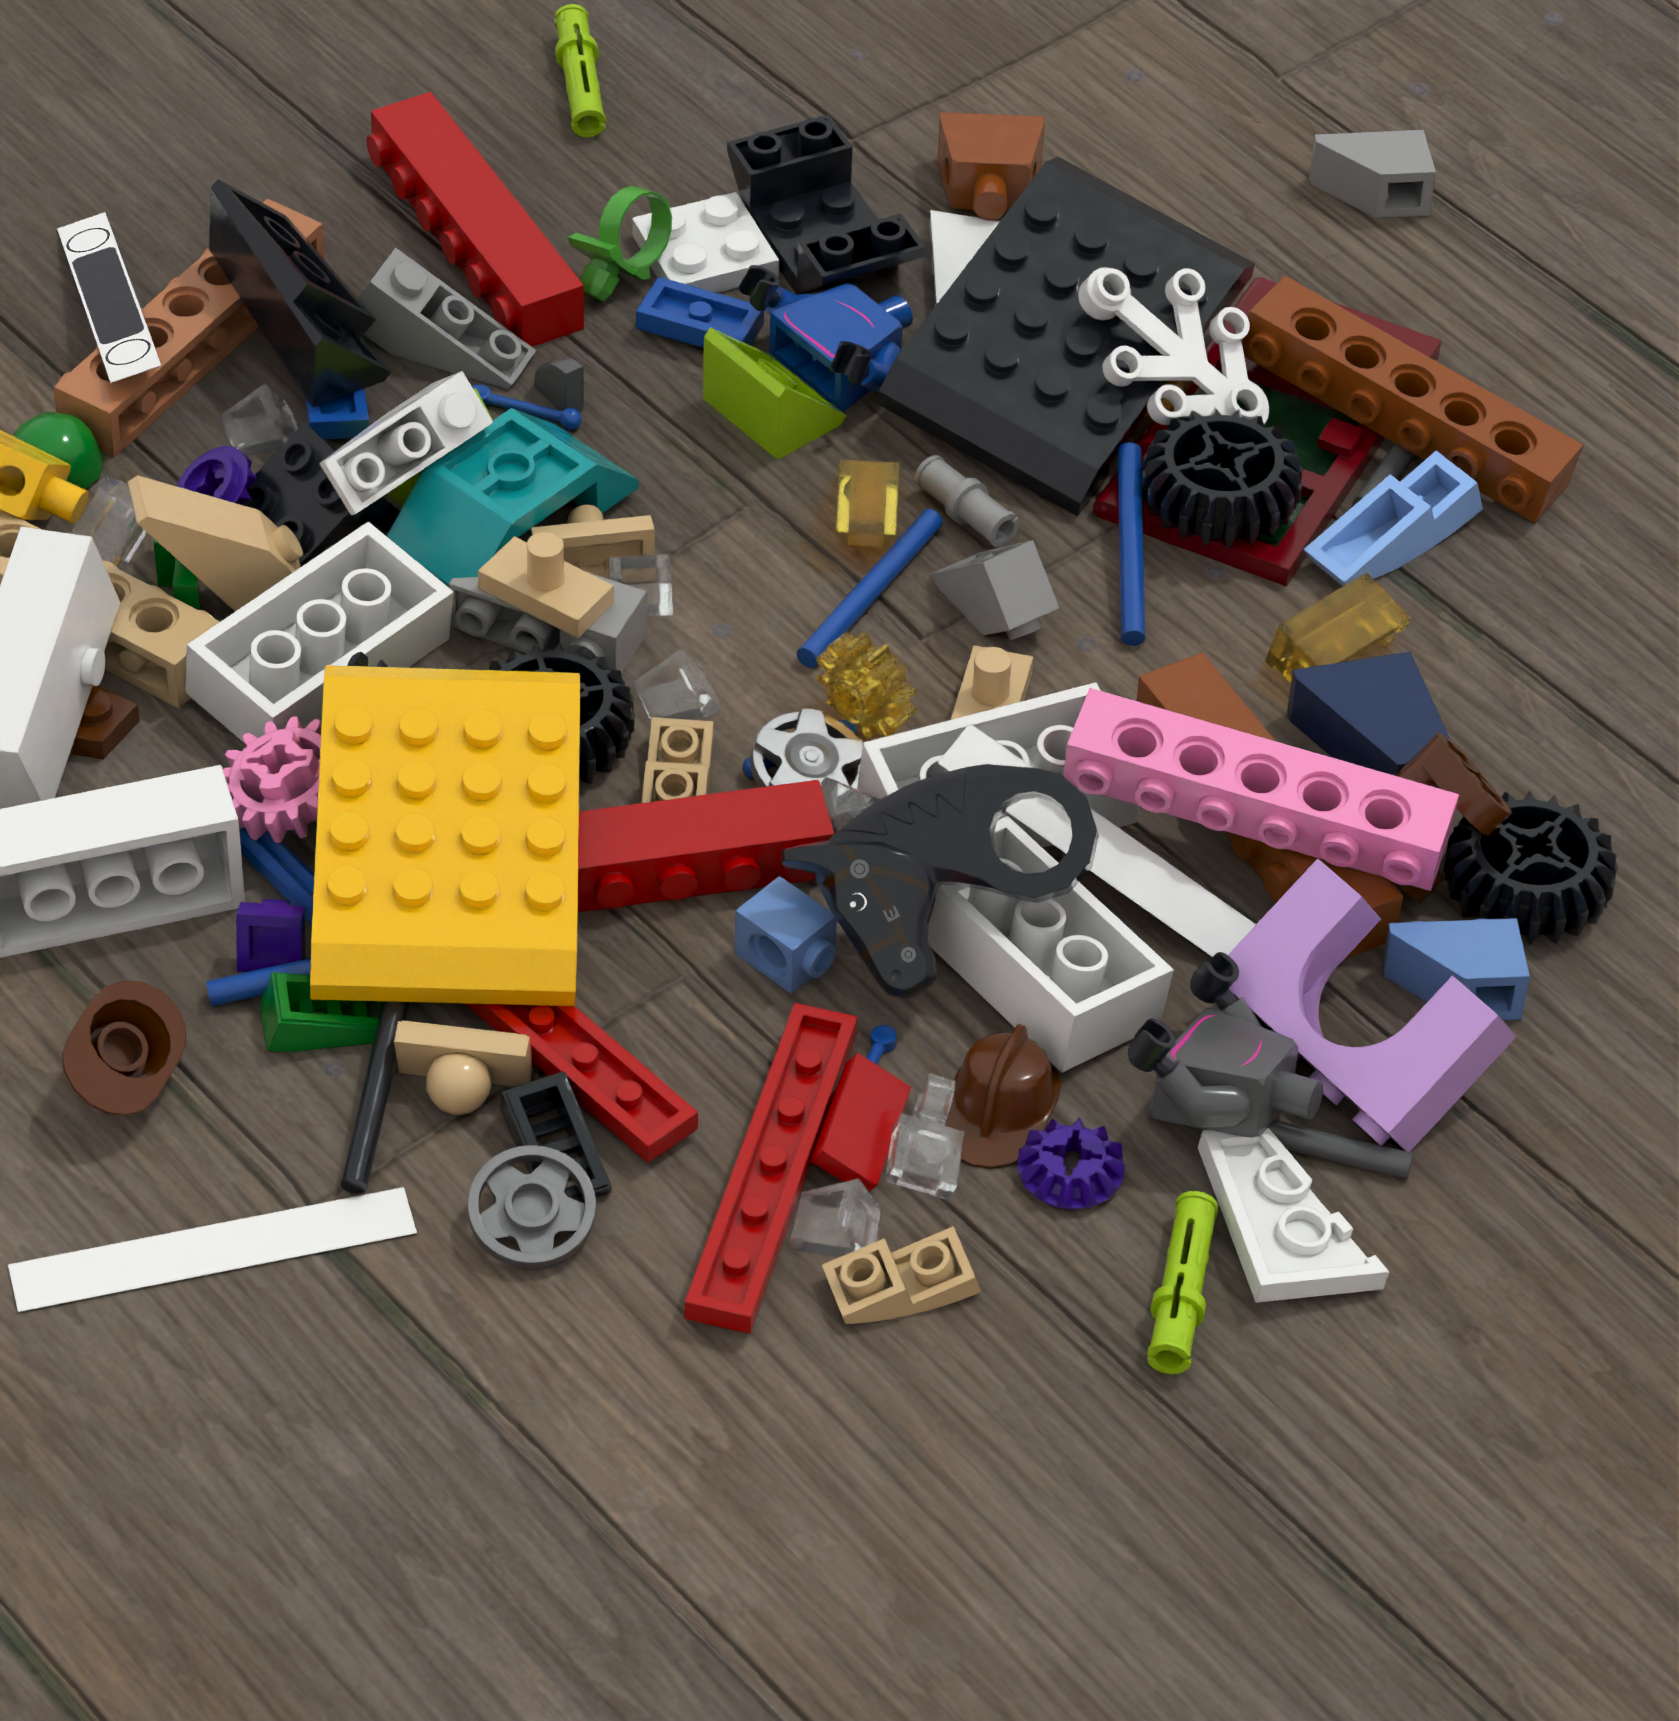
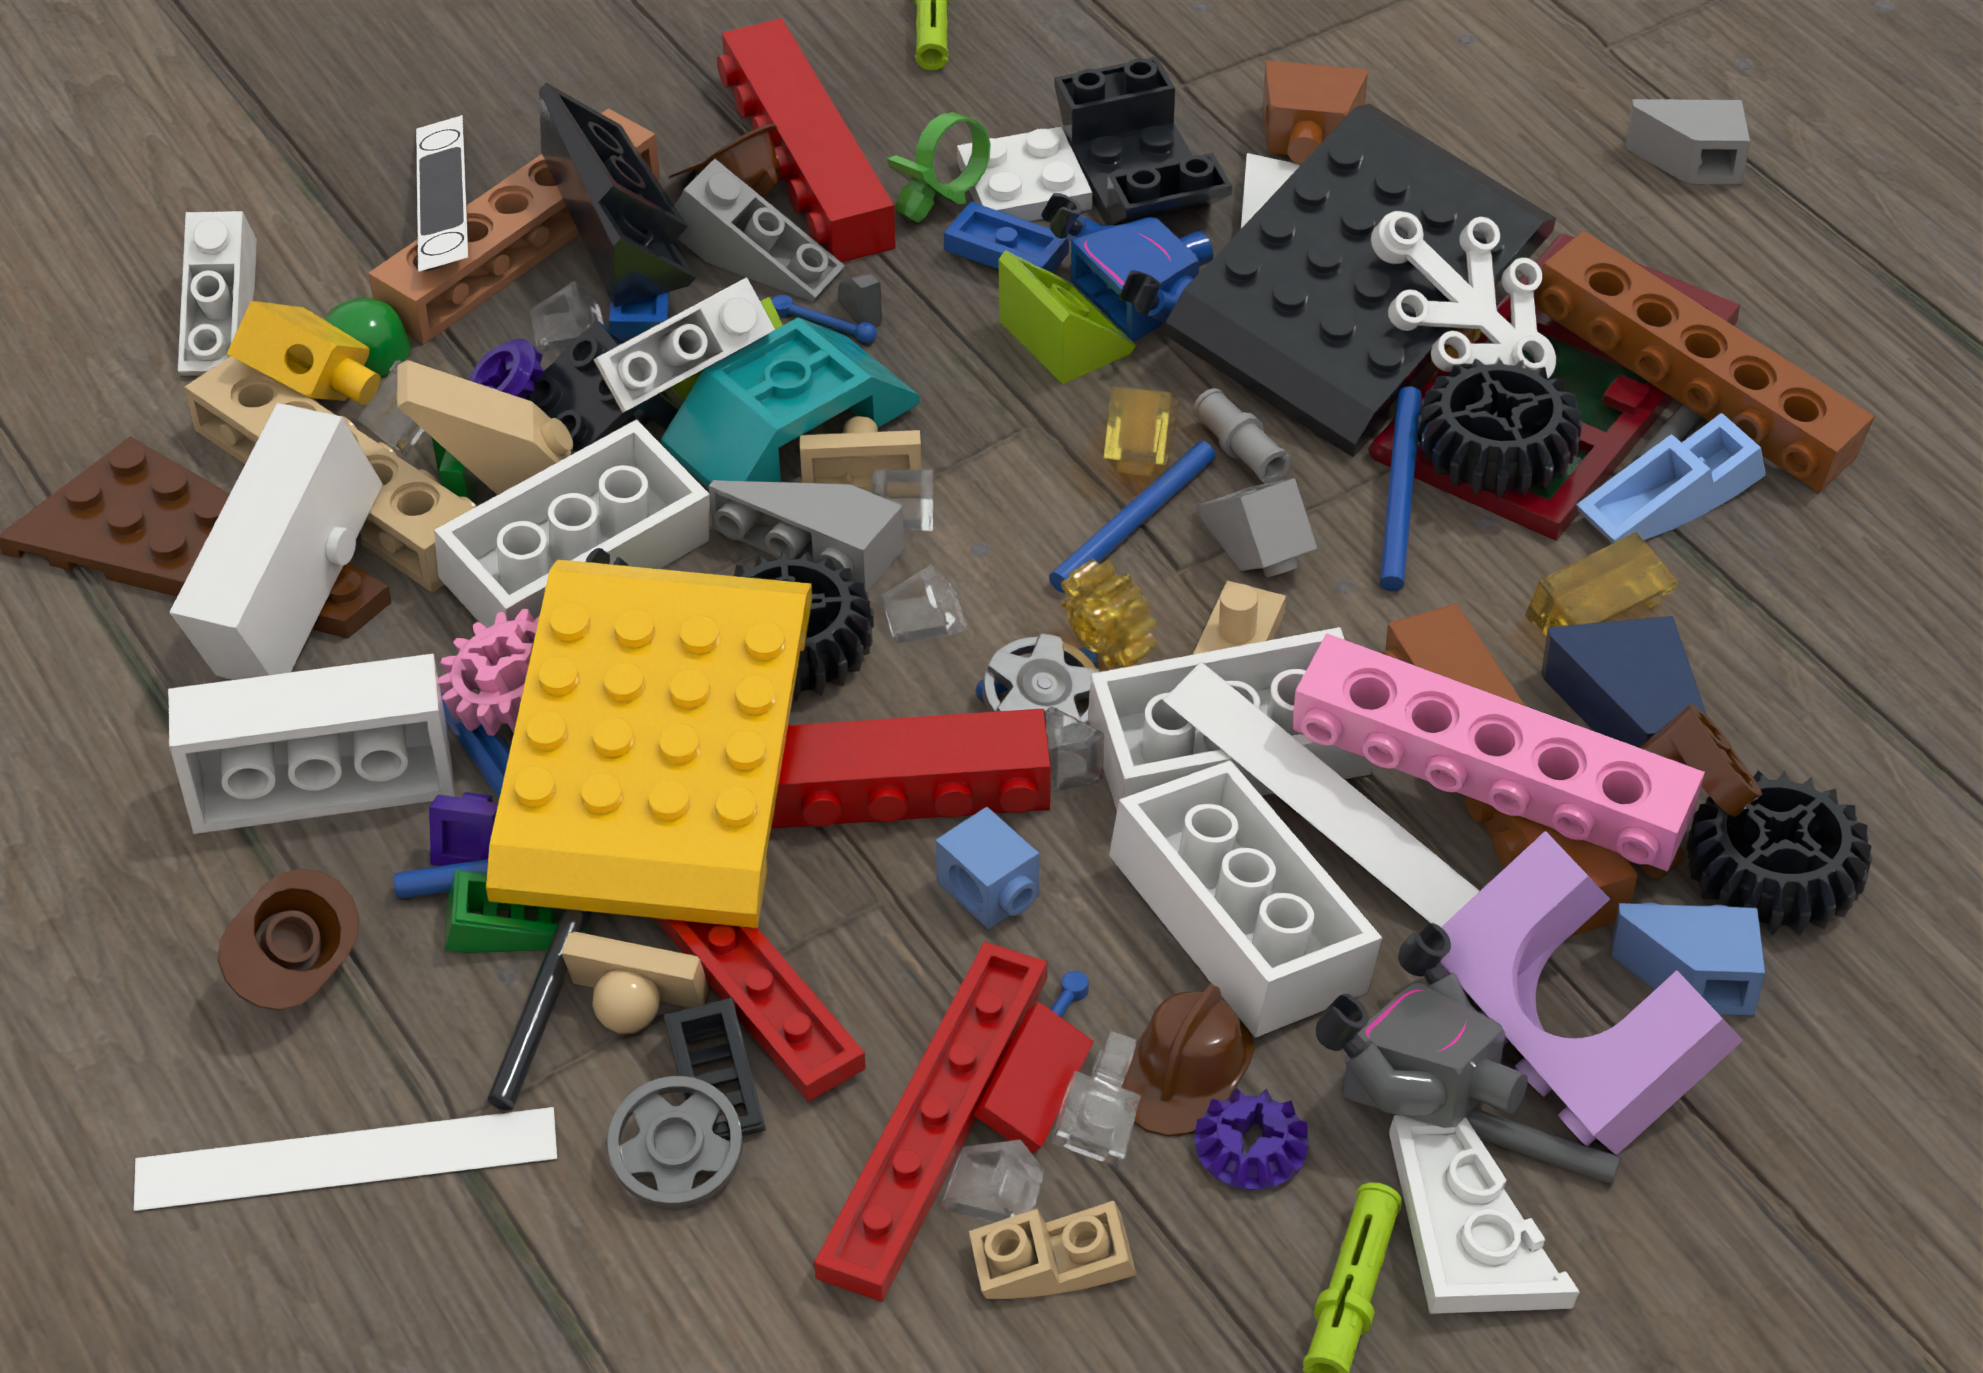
camera: 10 degrees right, 0 degrees up
(425, 243) = (749, 158): none -> reddish brown piece
(544, 585) = (801, 494): tan tile -> none
(678, 759) = (911, 677): tan slope -> none
(938, 831) = (1151, 772): black animal -> none

